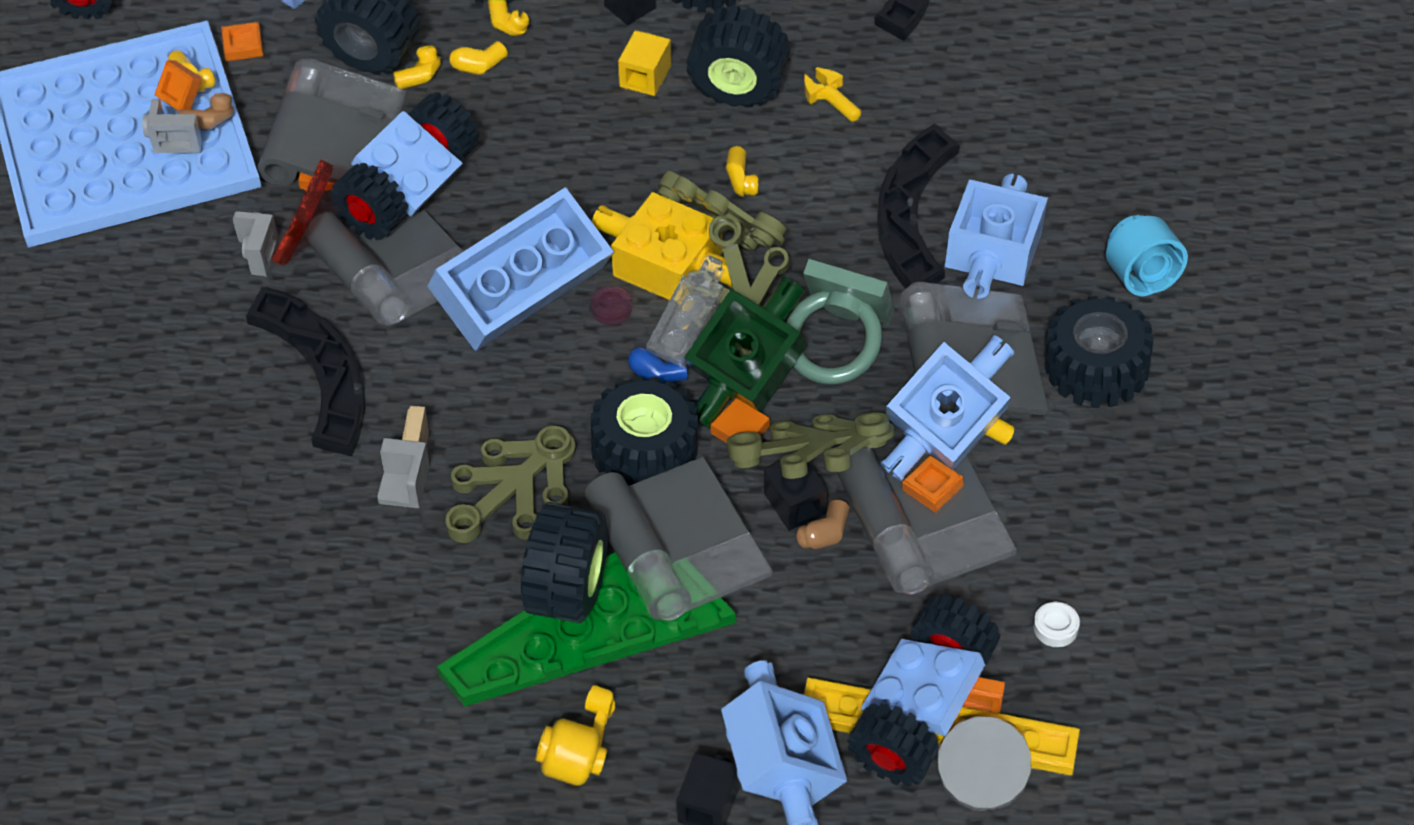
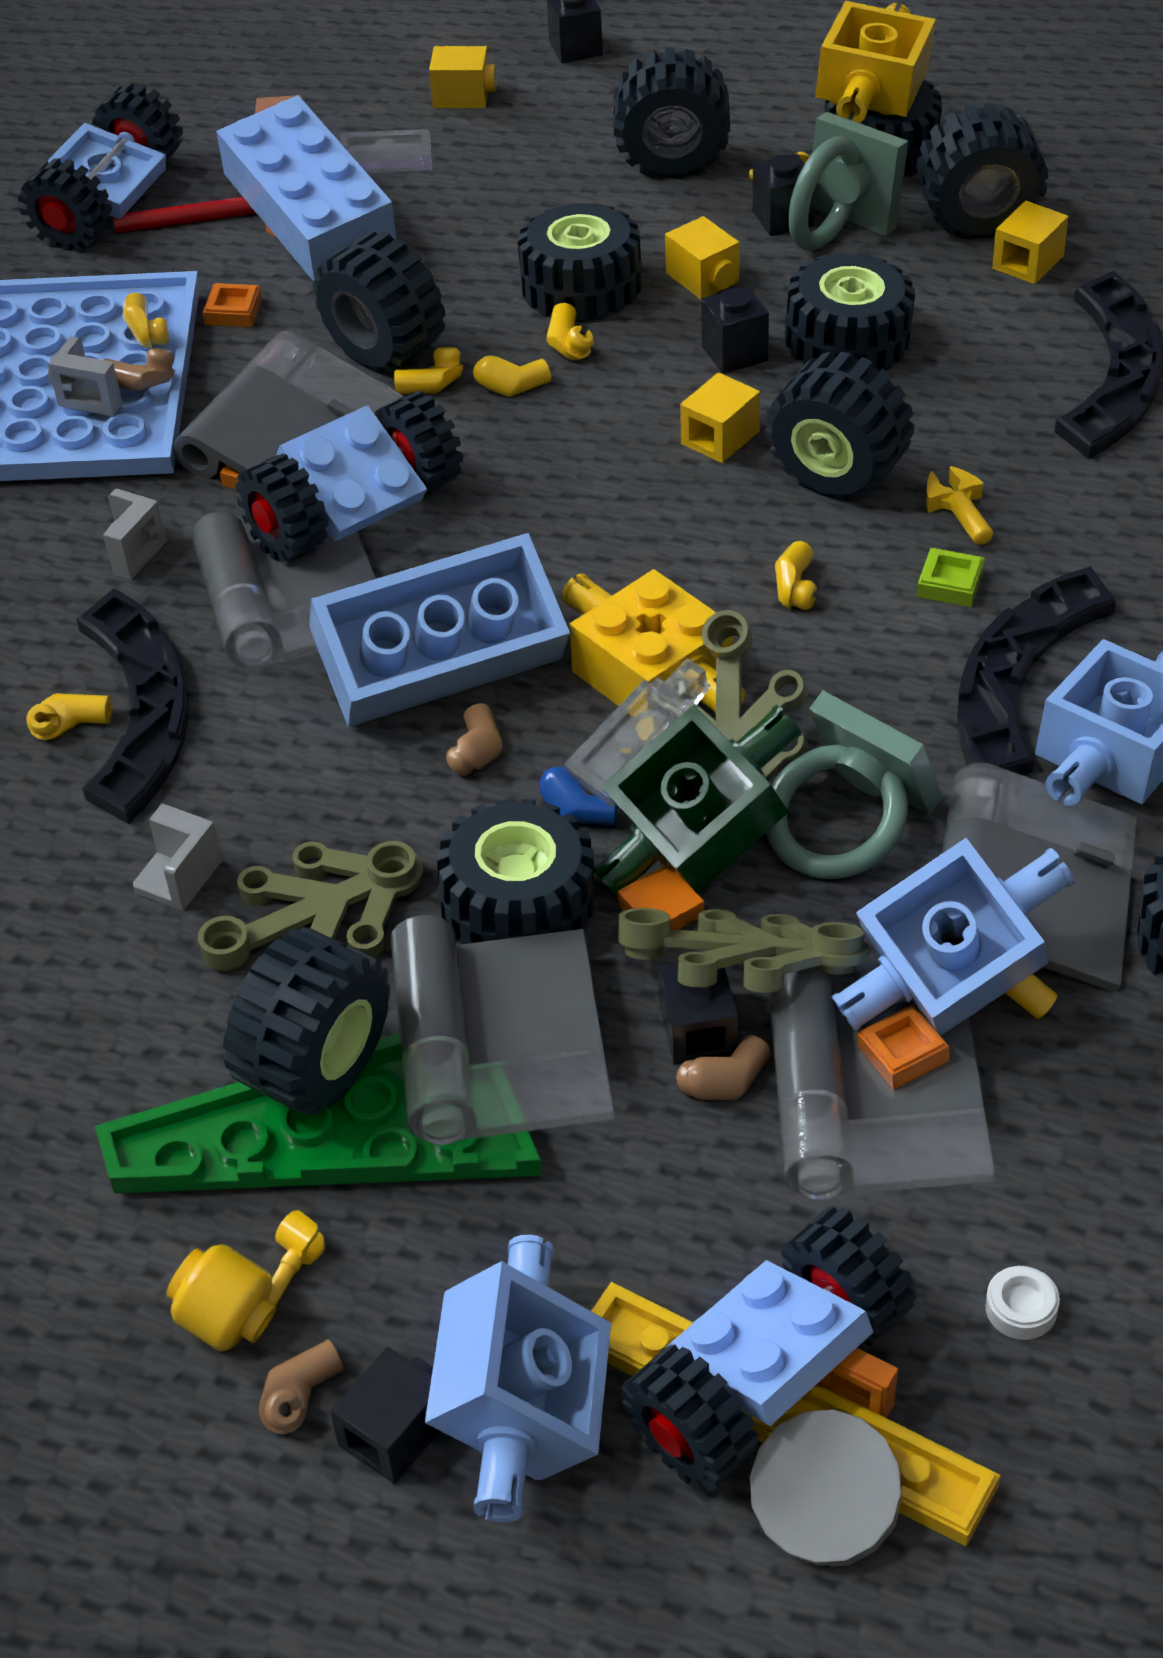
camera: 20 degrees right, 5 degrees down
(177, 85) = (116, 330): orange tile -> none
(271, 385) = (65, 711): none -> yellow arm
(303, 213) = (200, 495): clear red tile -> none
(416, 425) = (218, 803): tan tile -> none
(575, 342) = (479, 745): none -> medium nougat arm
(611, 305) = (551, 708): clear pink tile -> none
(634, 793) = (291, 1383): none -> medium nougat arm
(761, 230) = (780, 641): olive plant -> none
(844, 150) = (950, 577): none -> lime tile

